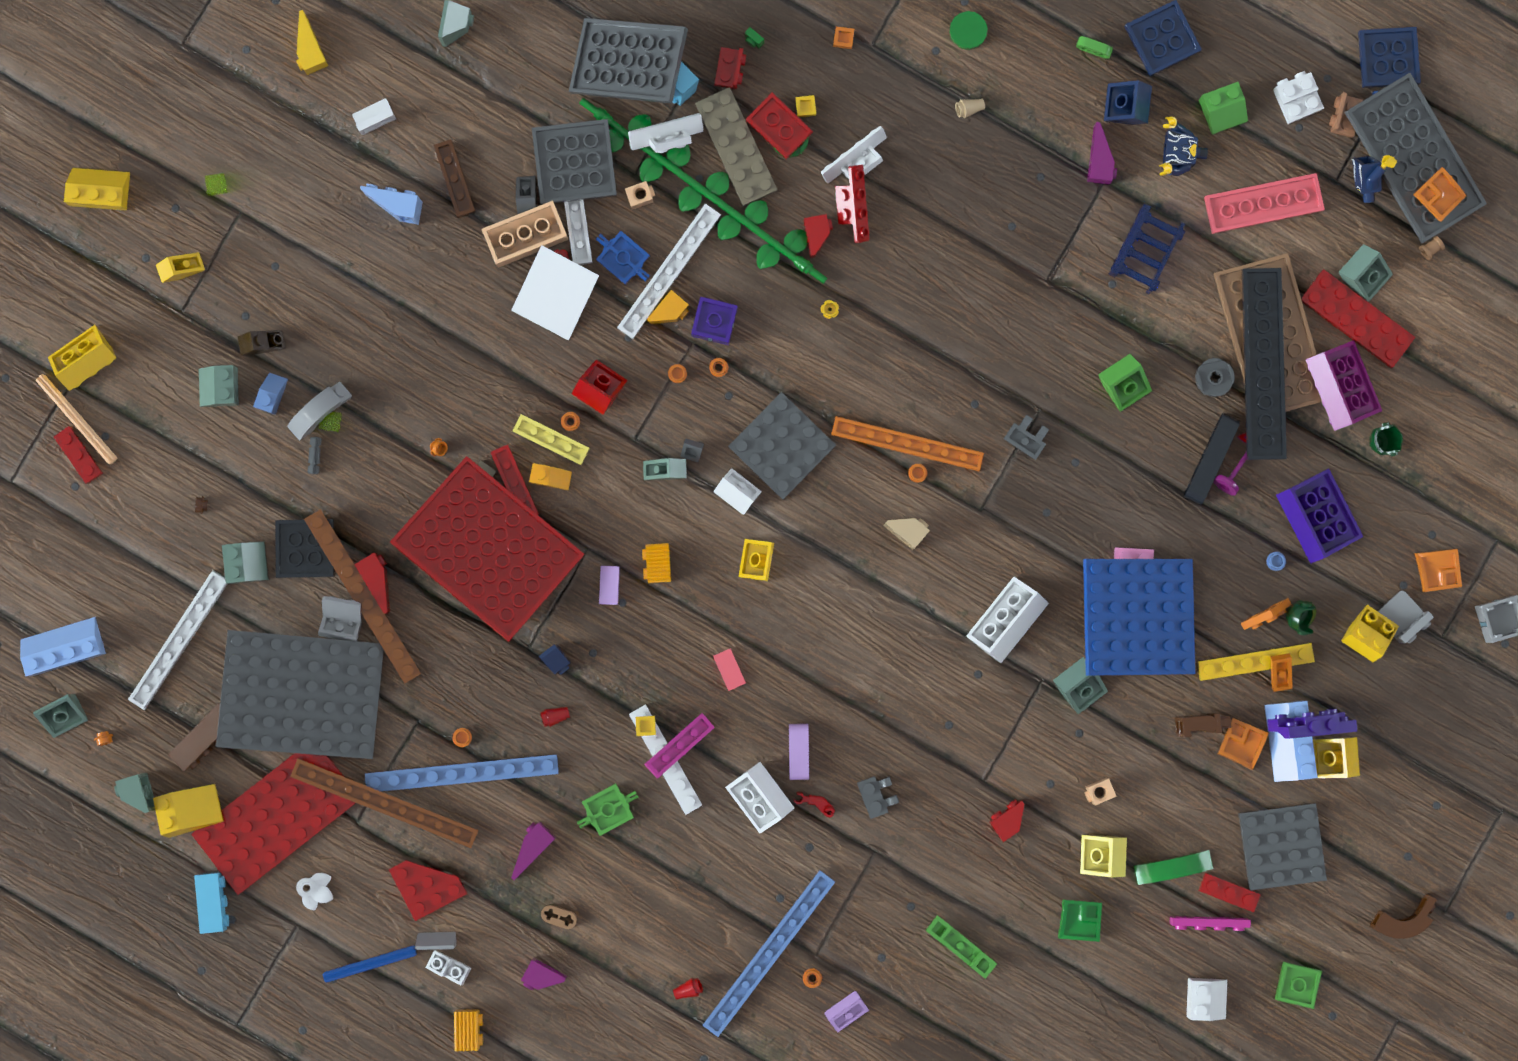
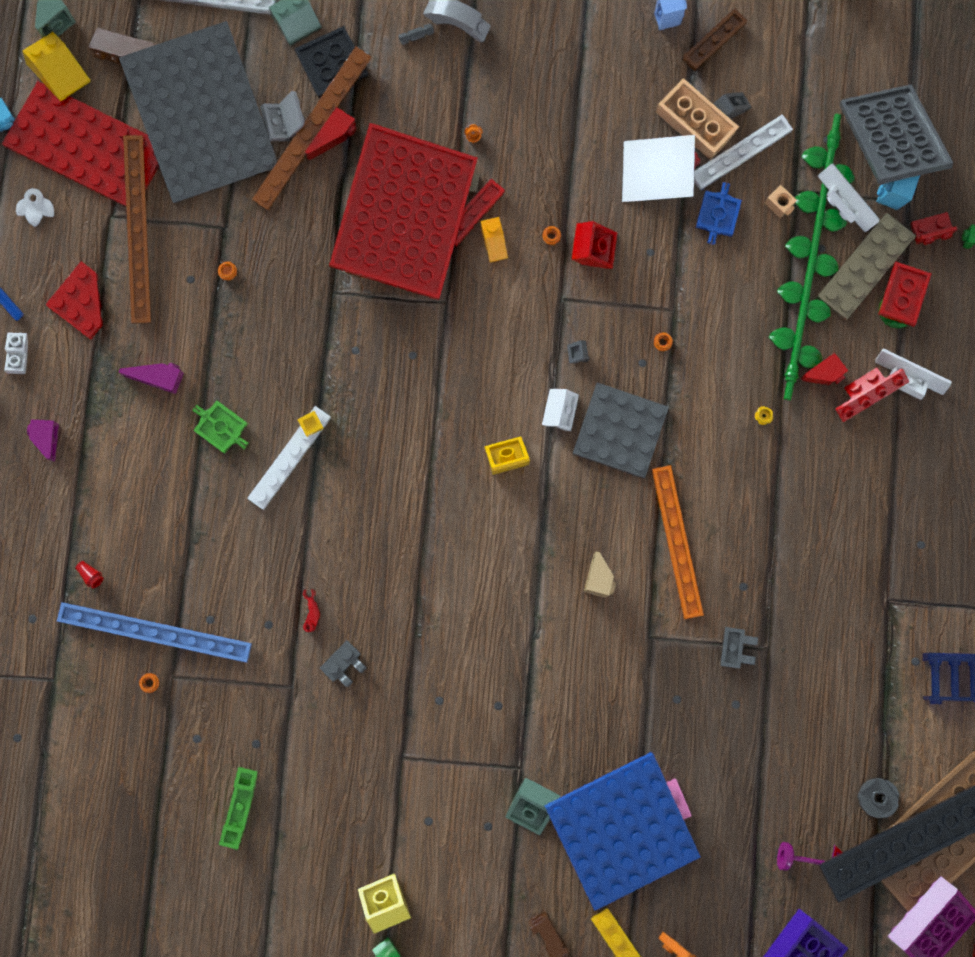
camera: 65 degrees right, 5 degrees down
(331, 422) = (452, 34): clear neon green plate -> none
(435, 940) = (35, 331): light grey slope -> none
(463, 773) = (196, 287): medium blue plate -> none
(551, 439) = (527, 226): light yellow plate -> none
(554, 716) = (282, 340): red cone -> none
(555, 660) = (333, 317): dark blue slope -> none
(560, 912) = (99, 429): medium nougat beam -> none
(574, 161) = (782, 131): dark grey plate -> none
(609, 585) = (422, 336): lavender slope -> none
(658, 563) = (462, 368): light orange brick -> none
(664, 469) = (549, 336): sand green slope -> none
(669, 271) = (726, 258): white plate -> none
(669, 310) = (692, 274): light orange slope -> none
(677, 373) = (639, 308): orange plate -> none
(679, 745) = (306, 462): dark pink plate -> none
(714, 321) = (702, 317): dark purple container -> none
(729, 669) = (396, 477): coral tile -> none
(760, 797) = (293, 557): white slope -> none
(798, 752) = (351, 573): lavender beam -> none
(805, 106) = (933, 309): yellow plate -> none
(846, 1011) = (132, 729): lavender slope -> none
(917, 473) = (655, 563): orange plate -> none
(1007, 619) = (561, 709): white slope -> none
(1009, 821) = (375, 798): red slope -> none
(1080, 920) = (313, 910): green plate -> none
(1109, 792) = (444, 880): light nougat brick -> none
(1125, 382) = (833, 715): bright green slope -> none
(1212, 458) = (802, 831): black beam -> none
(1276, 561) = (737, 938): medium blue plate -> none

